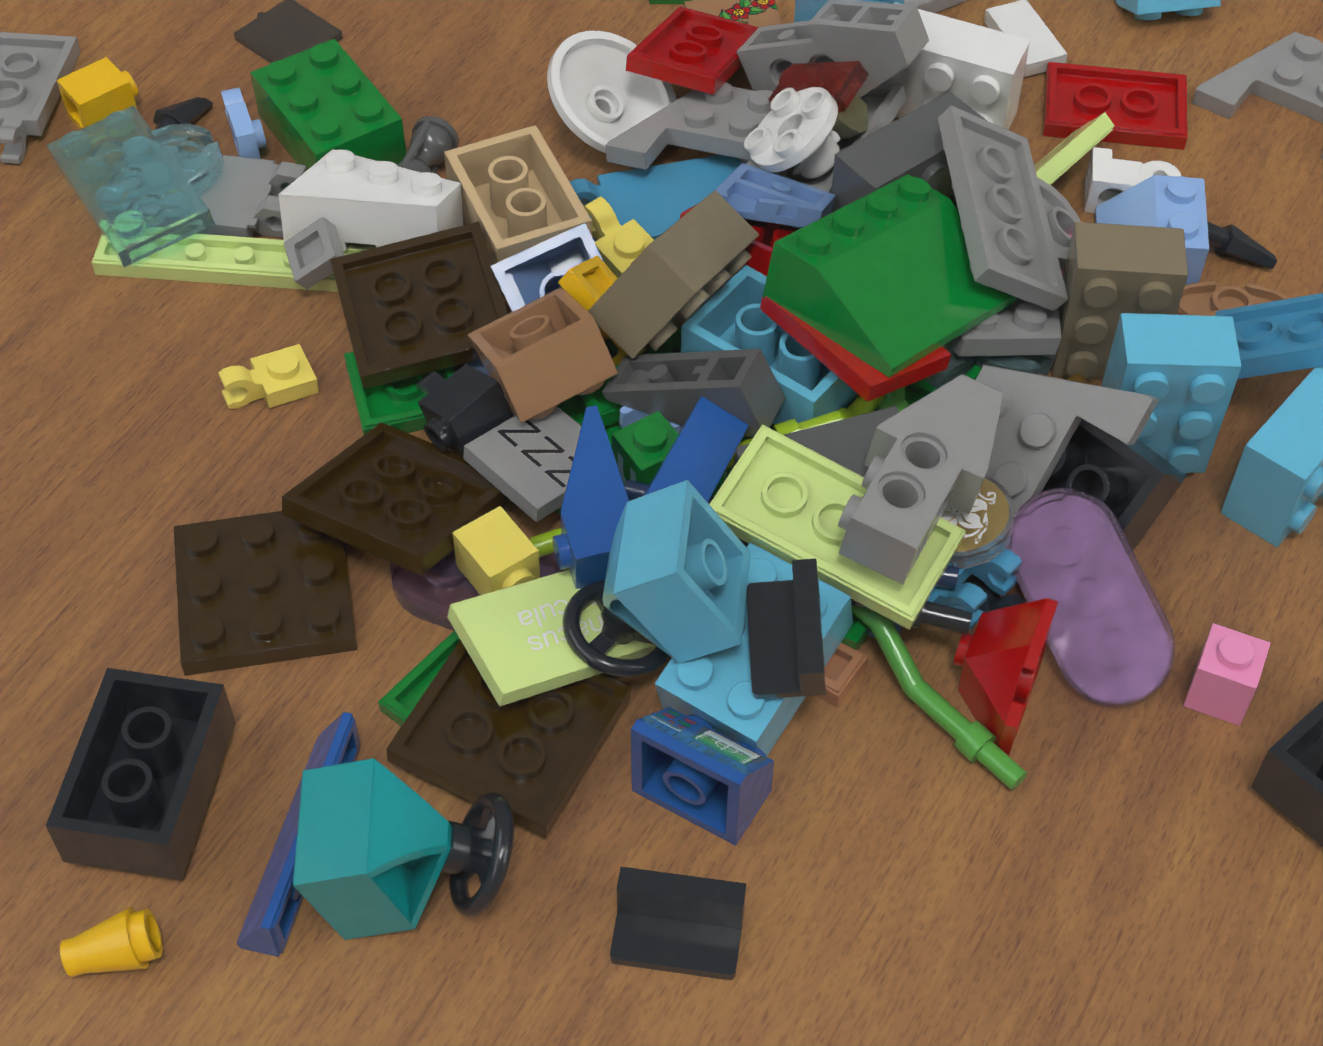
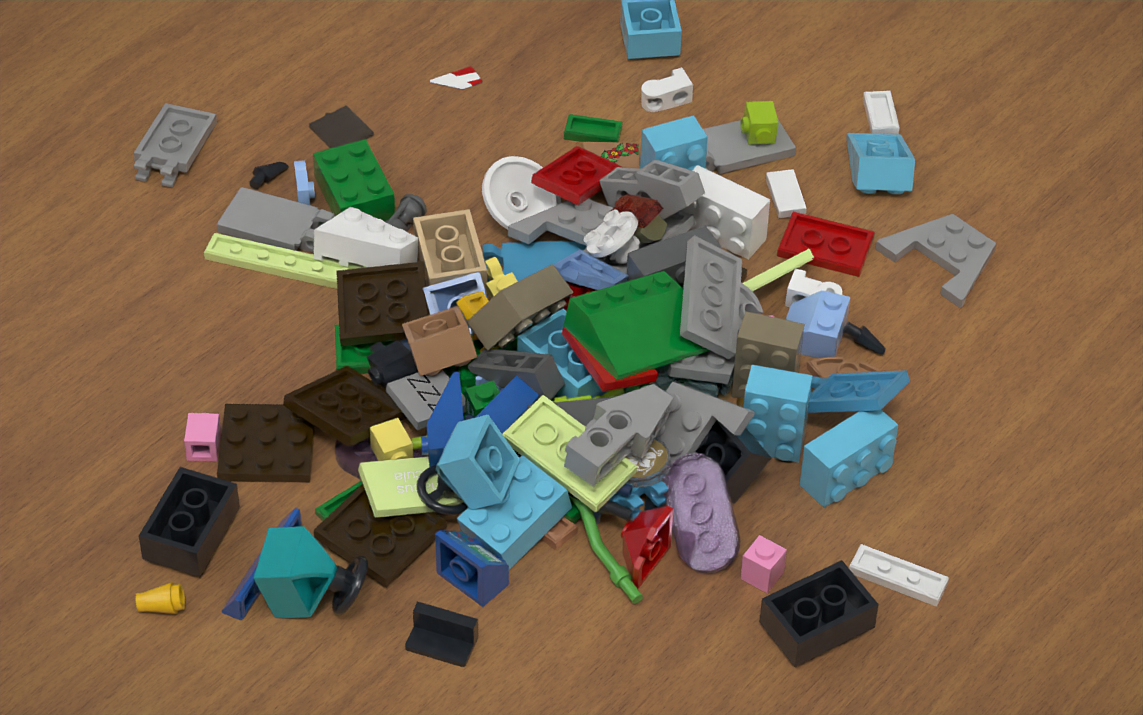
camera: 10 degrees right, 5 degrees down
(96, 92) = (223, 154): yellow brick -> none
(140, 180) = (239, 208): clear light blue plate -> none
(142, 596) = (202, 437): none -> bright pink brick
(275, 376) = (294, 332): light yellow plate -> none
(311, 252) = (327, 264): light grey tile -> none
(787, 635) = (528, 502): black panel -> none

